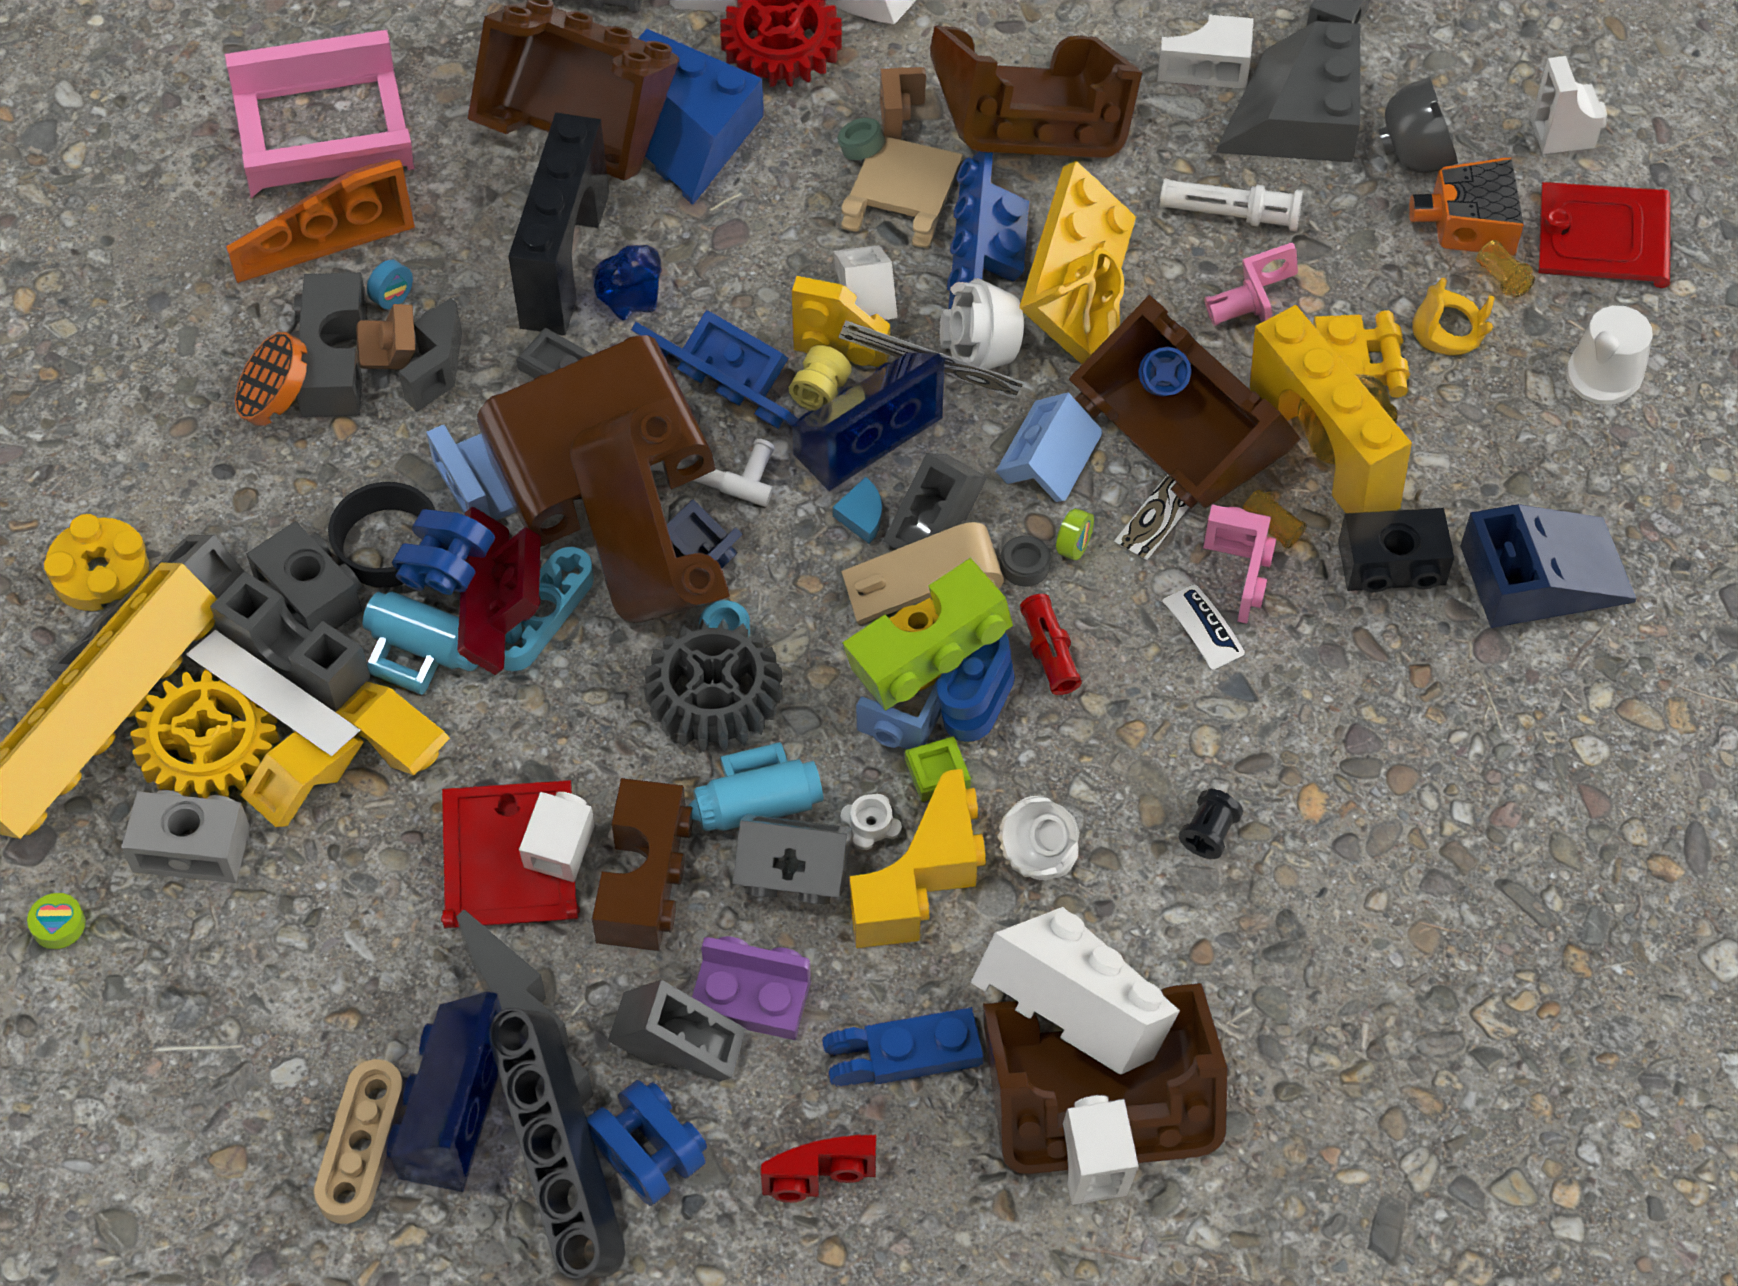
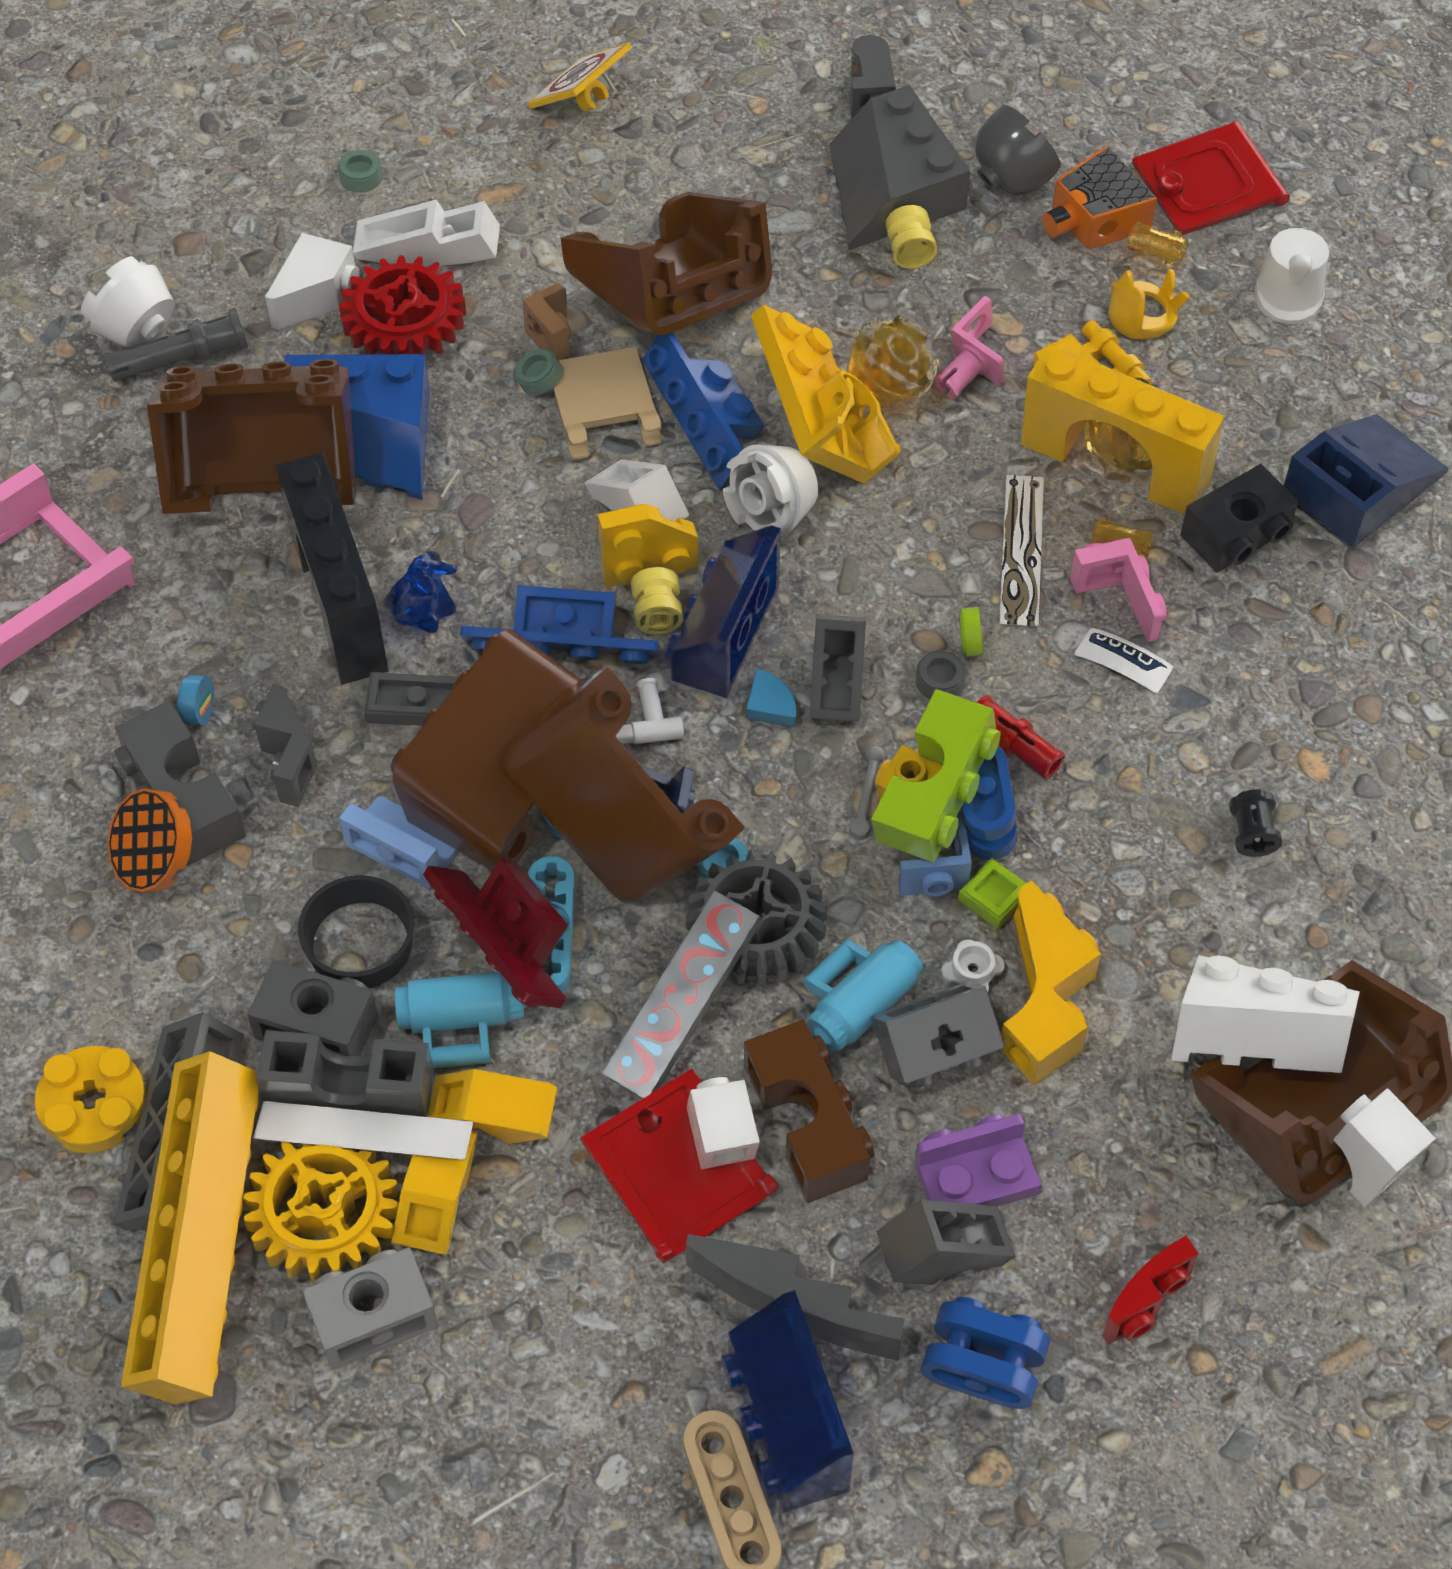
camera: 30 degrees left, 0 degrees up
(56, 920) = (294, 1455): lime tile -> none
(339, 216) = (107, 652): orange wedge -> none
(387, 342) = (238, 750): medium nougat bracket -> none
(442, 552) = (442, 918): blue brick -> none
(577, 1157) = (933, 1424): black beam -> none
(601, 715) = (682, 996): none -> tile
(904, 574) = (864, 729): tan door -> none
(906, 1048) = (1143, 1147): blue hinge -> none
(953, 367) = (715, 539): sticker -> none
(1039, 838) = (1129, 907): white hair -> none
(1051, 446) = (893, 565): light blue panel -> none
(1168, 263) = (893, 360): none -> clear yellow cone
(1170, 367) = (964, 451): blue wheel -> none
(1175, 196) = (921, 279): white pin -> none
(1203, 436) = (988, 479): reddish brown windscreen -> none
(1210, 56) = (797, 166): white arch -> none
(1274, 161) = (911, 236): none -> light yellow wheel
(1566, 112) = (1117, 89): white arch -> none

